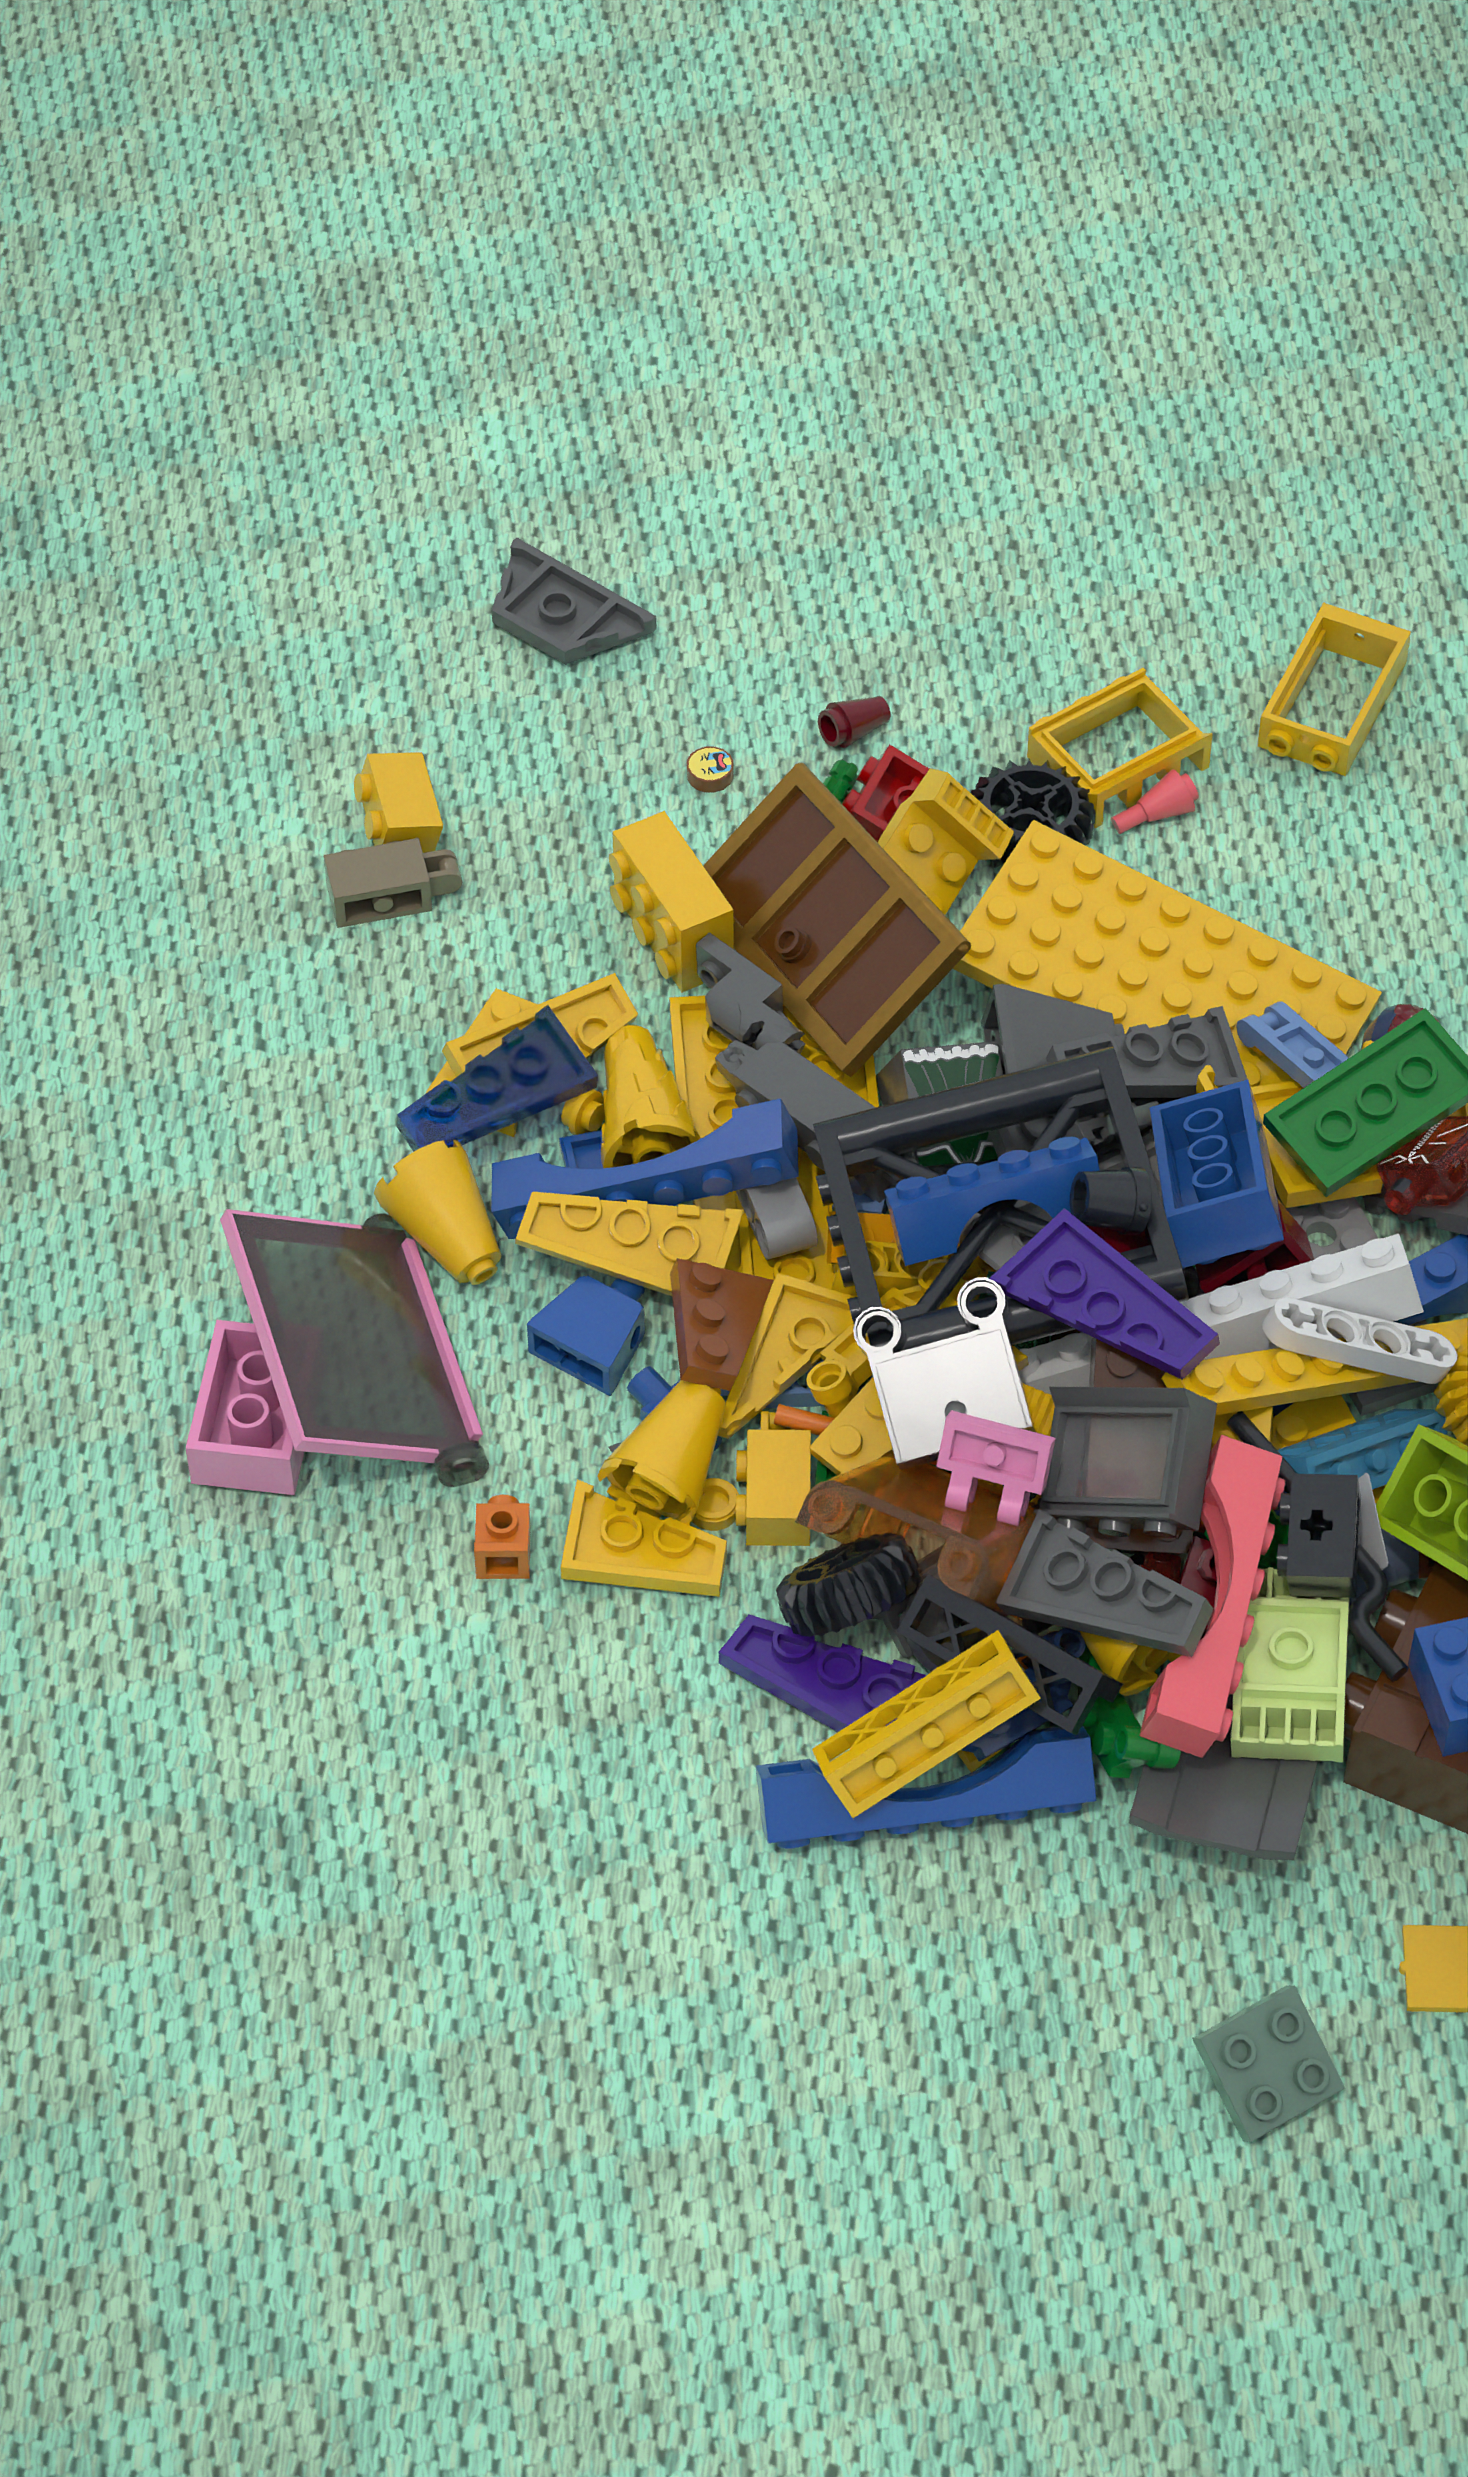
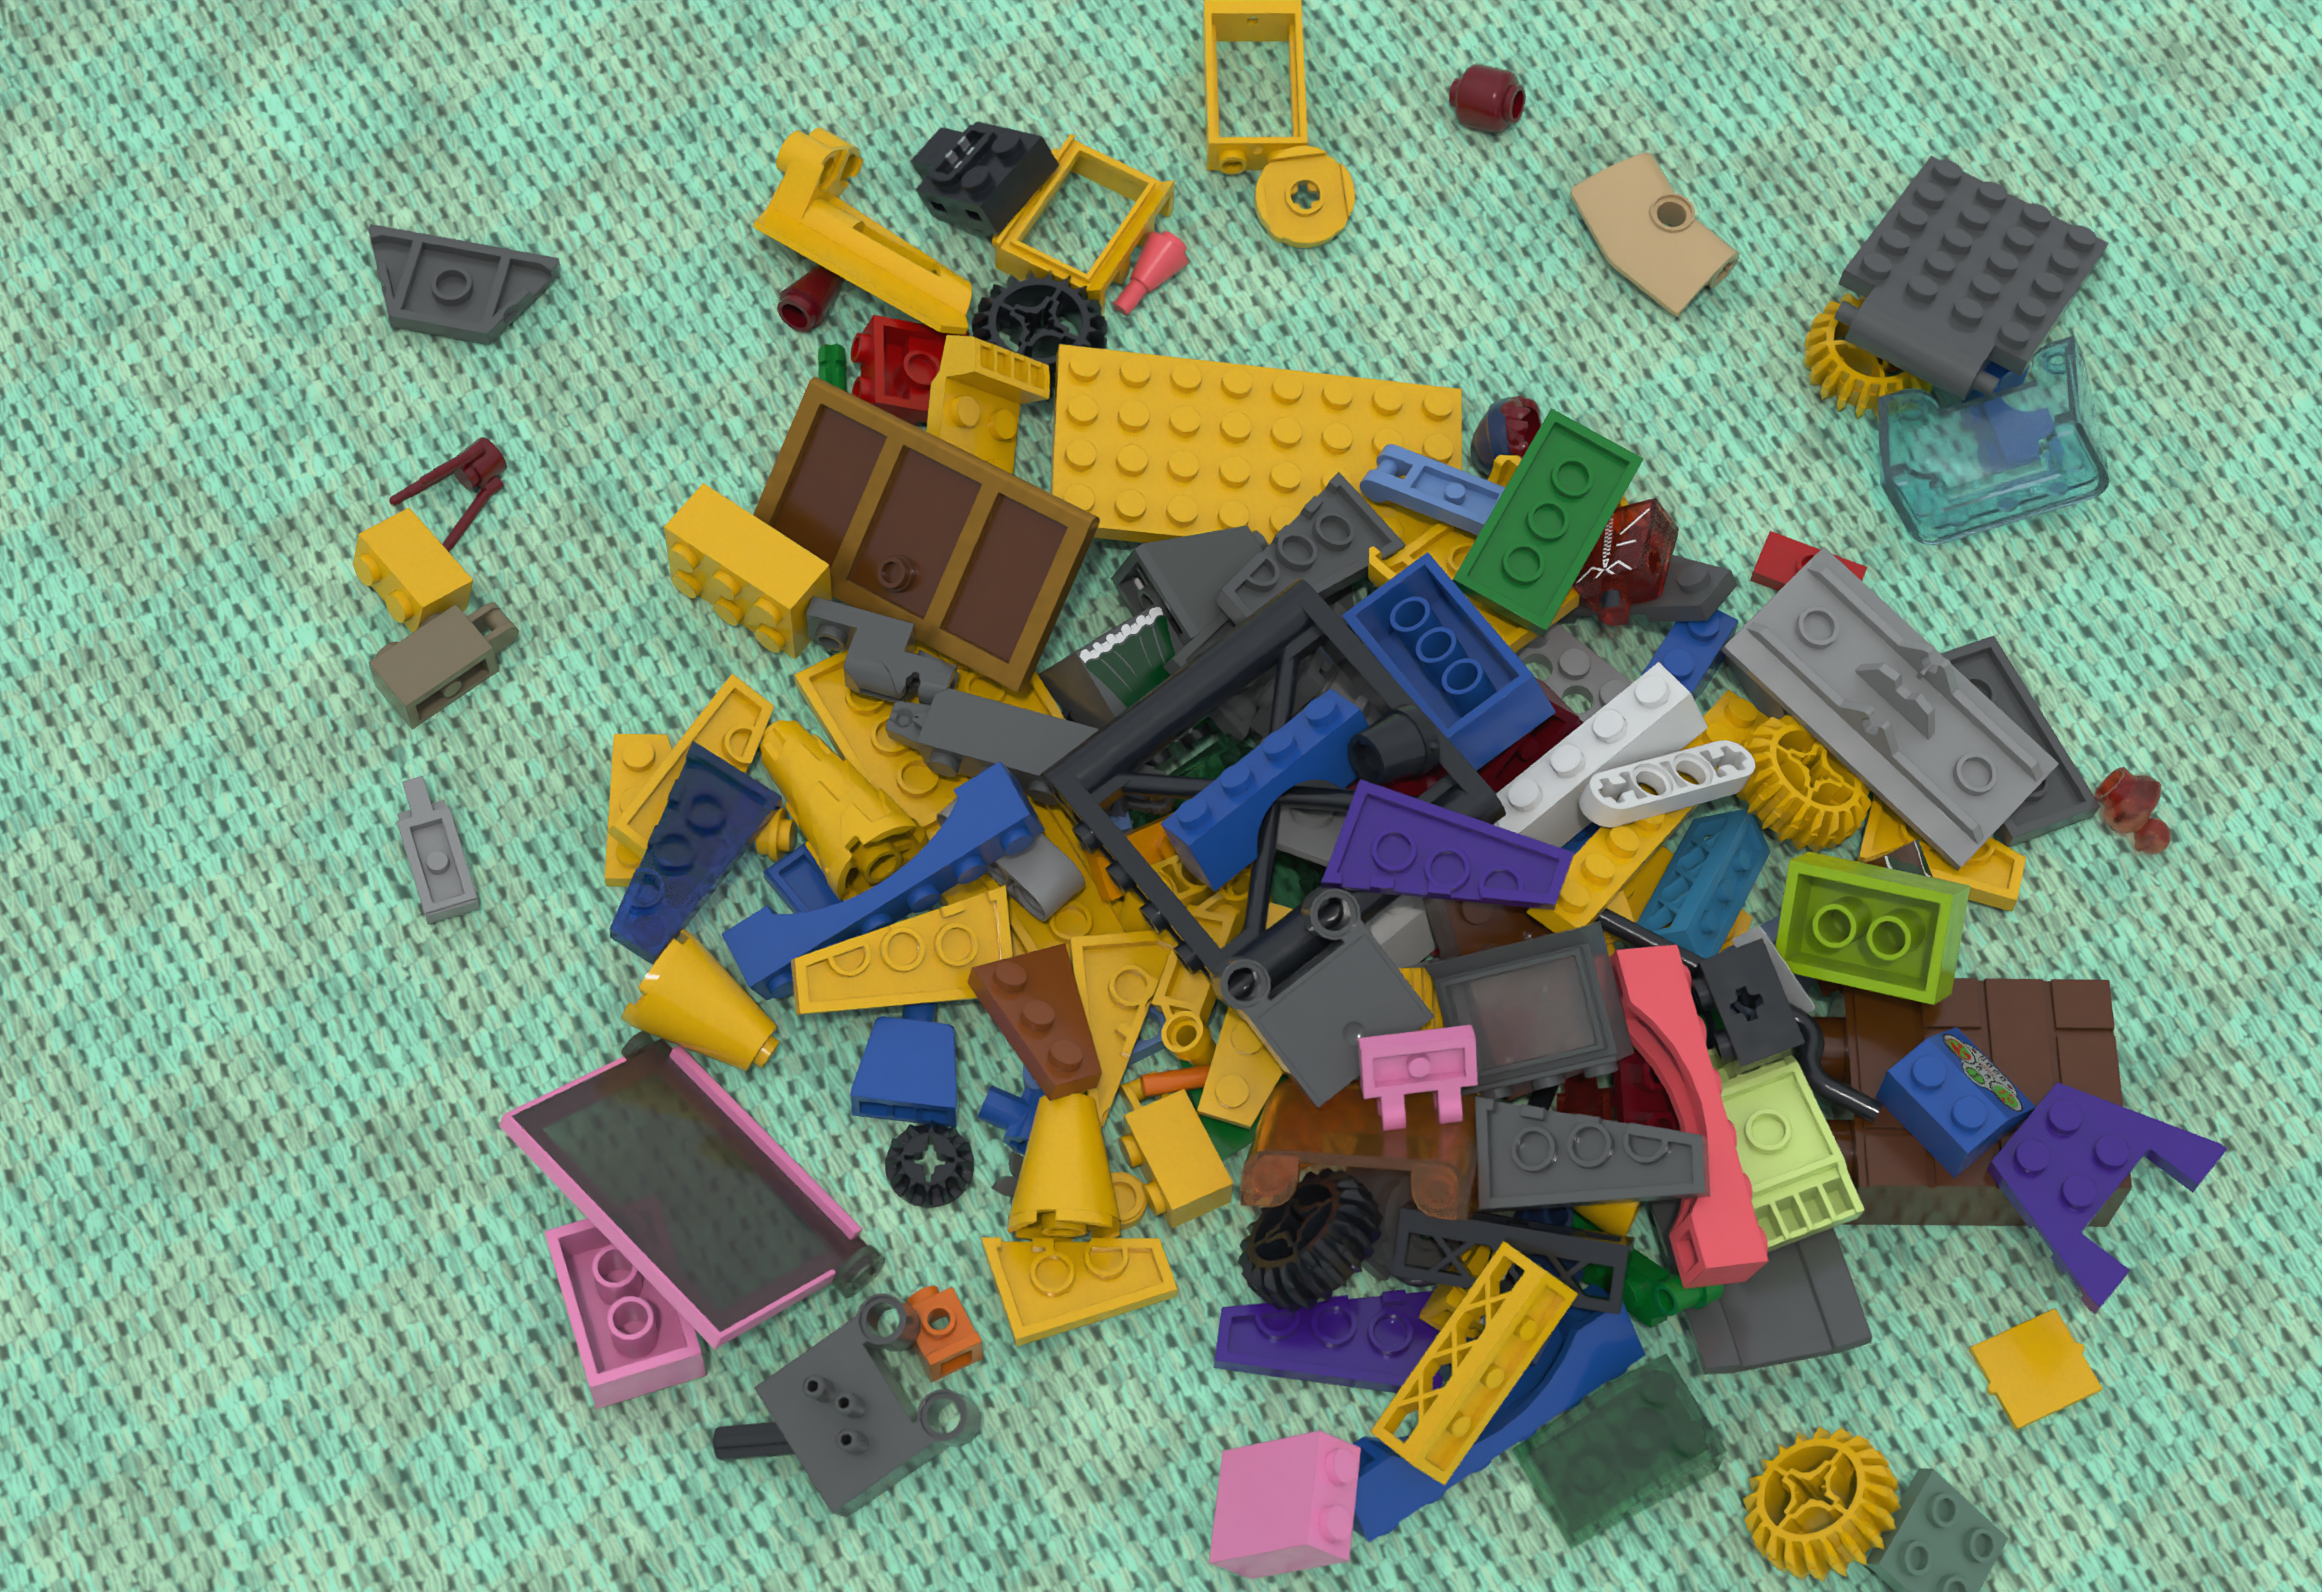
camera: 30 degrees left, 10 degrees up
(299, 1023) = (435, 855): none -> light grey hinge
(388, 1561) = (849, 1414): none -> dark grey piece
(497, 747) = (473, 467): none -> dark red plant
(575, 1429) = (947, 1181): none -> black gear
(707, 1776) = (1285, 1505): none -> bright pink brick
(710, 769) = (696, 404): tile -> none
(891, 668) = (840, 238): none -> yellow panel
(1033, 1870) = (1621, 1452): none -> clear green slope
(1048, 672) = (981, 174): none -> black piece
(1181, 1976) = (1821, 1504): none -> yellow gear
(1330, 817) = (1287, 220): none -> yellow plate

